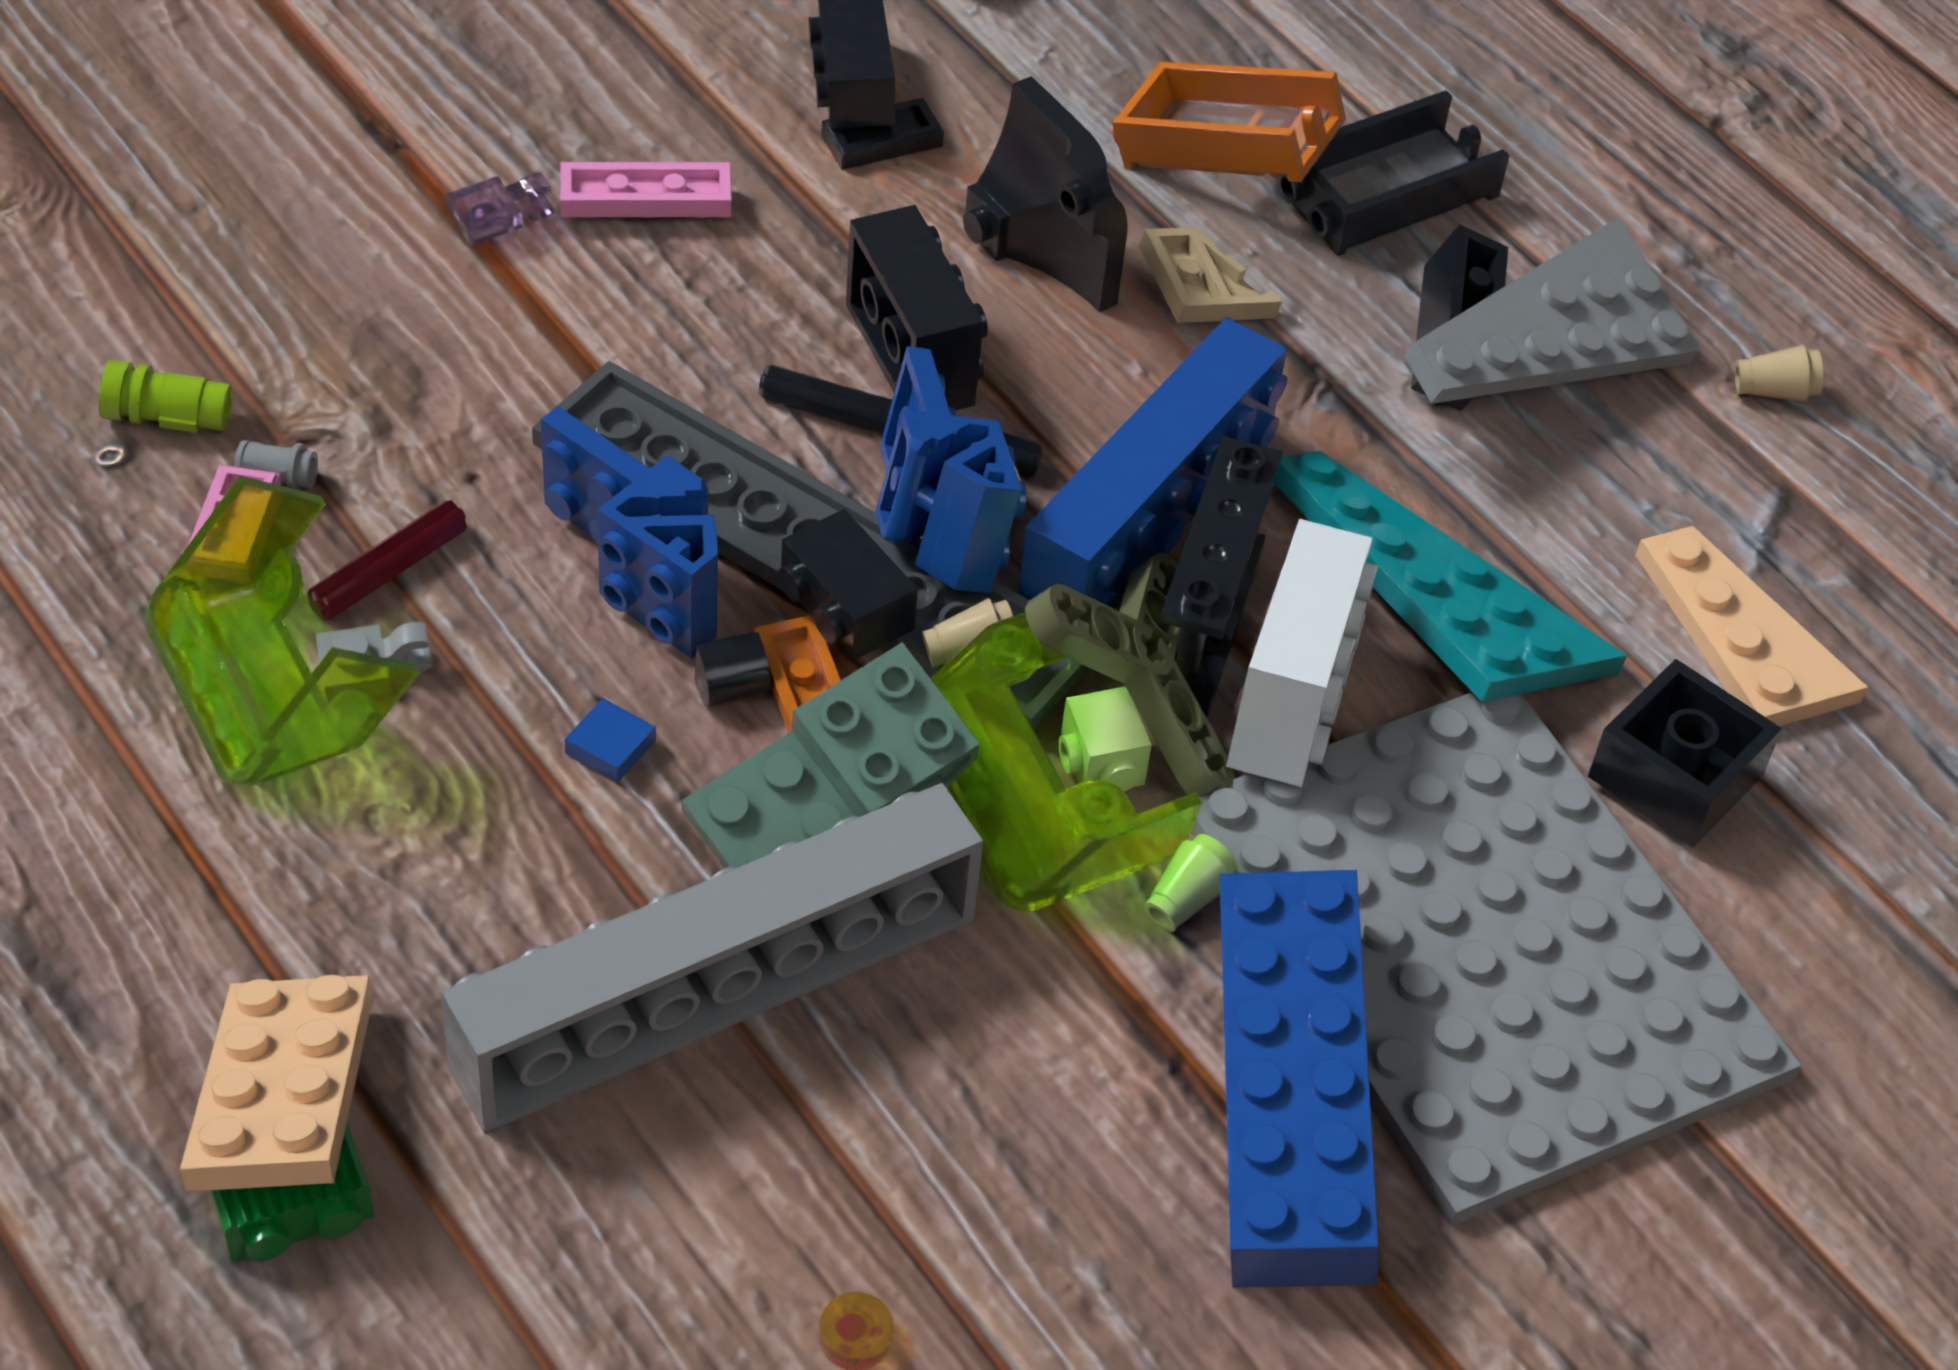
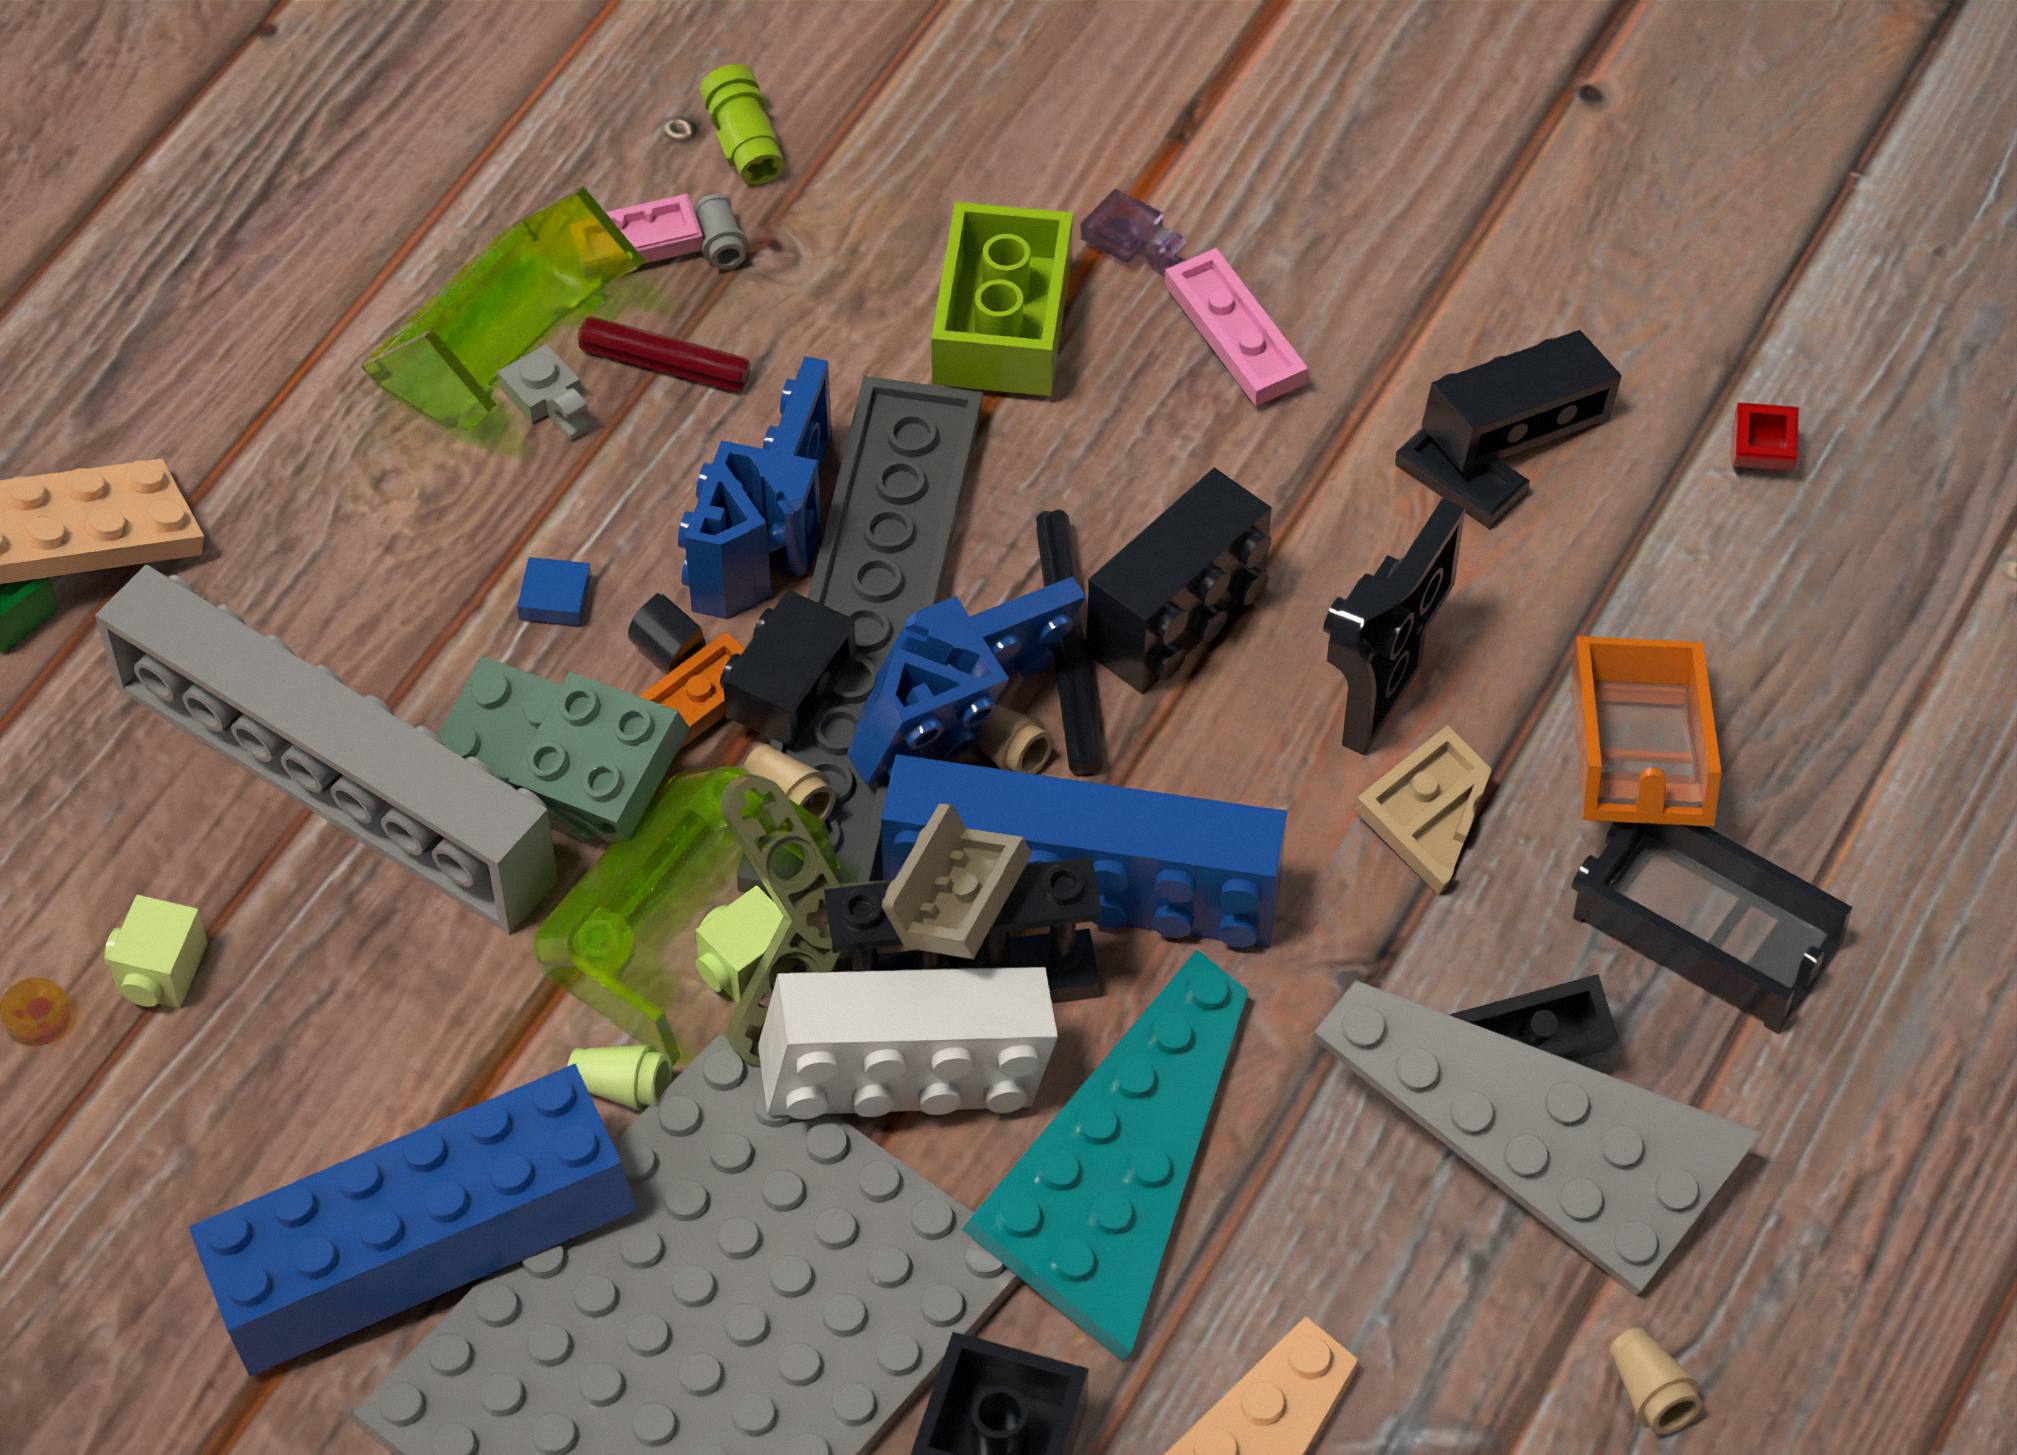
camera: 70 degrees right, 5 degrees up
(521, 302) = (1002, 298): none -> lime brick
(859, 1191) = (156, 952): none -> yellowish green brick
(1233, 512) = (953, 885): none -> dark tan bracket

